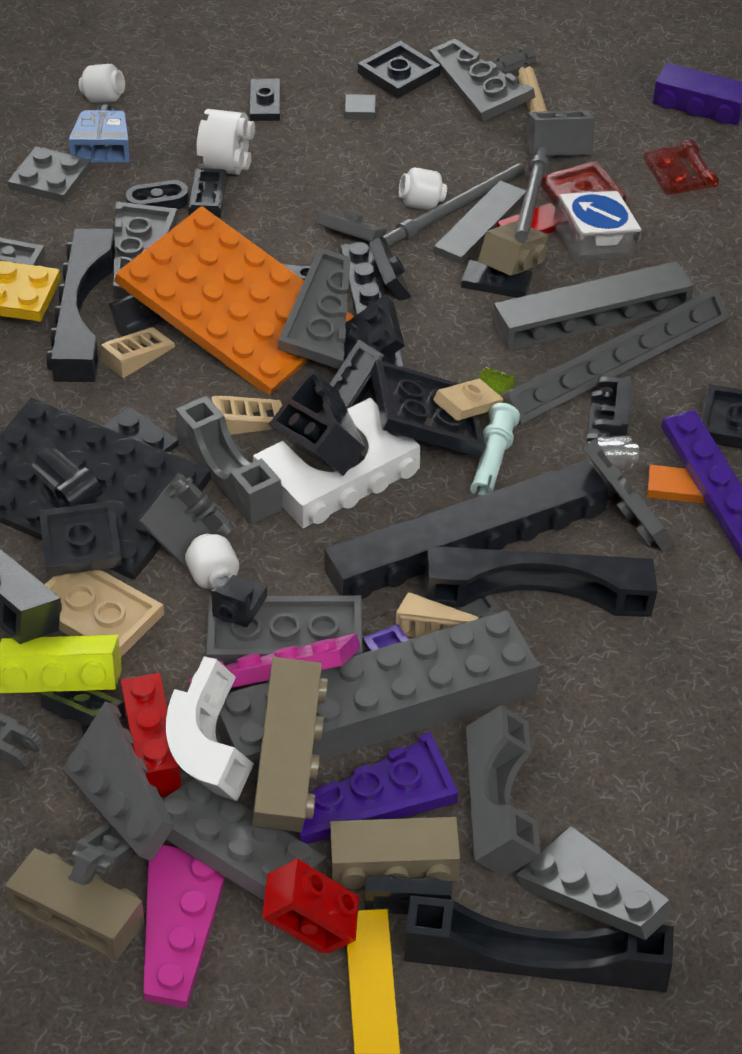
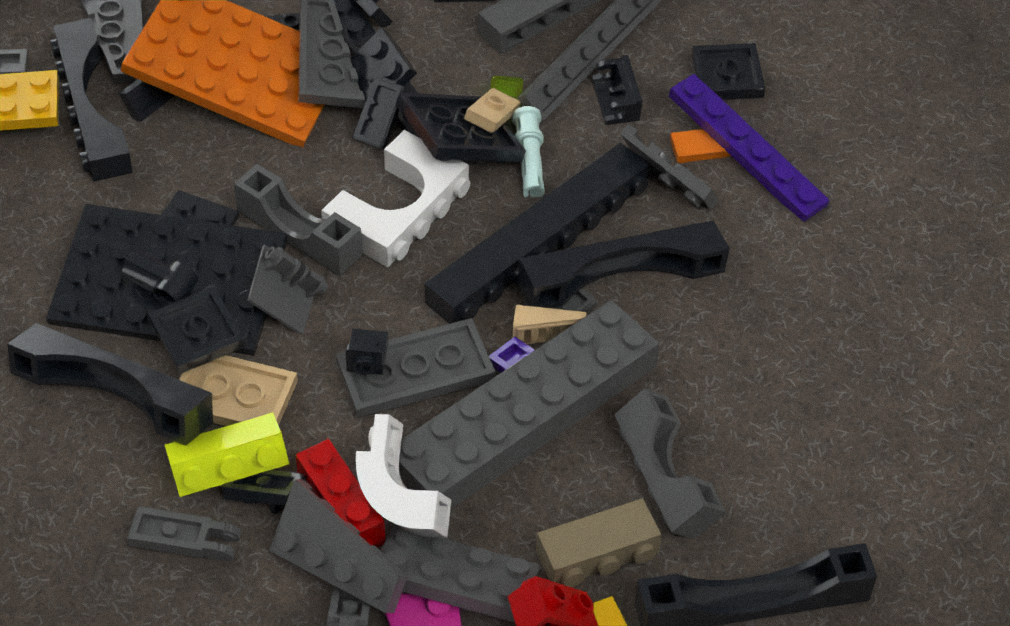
camera: 20 degrees left, 5 degrees up
(121, 358) = (155, 150): tan slope -> none
(211, 561) = (324, 320): white head -> none
(233, 406) = (297, 178): tan slope -> none
(287, 745) = (478, 474): dark tan brick -> none
(320, 424) = (372, 168): black wedge -> none
(329, 652) = (438, 398): dark pink wing -> none
(394, 788) = (568, 489): dark purple wing -> none
(395, 893) = (623, 579): black plate -> none
(595, 884) = (783, 525): wing -> none
(619, 451) = (646, 124): clear brick -> none

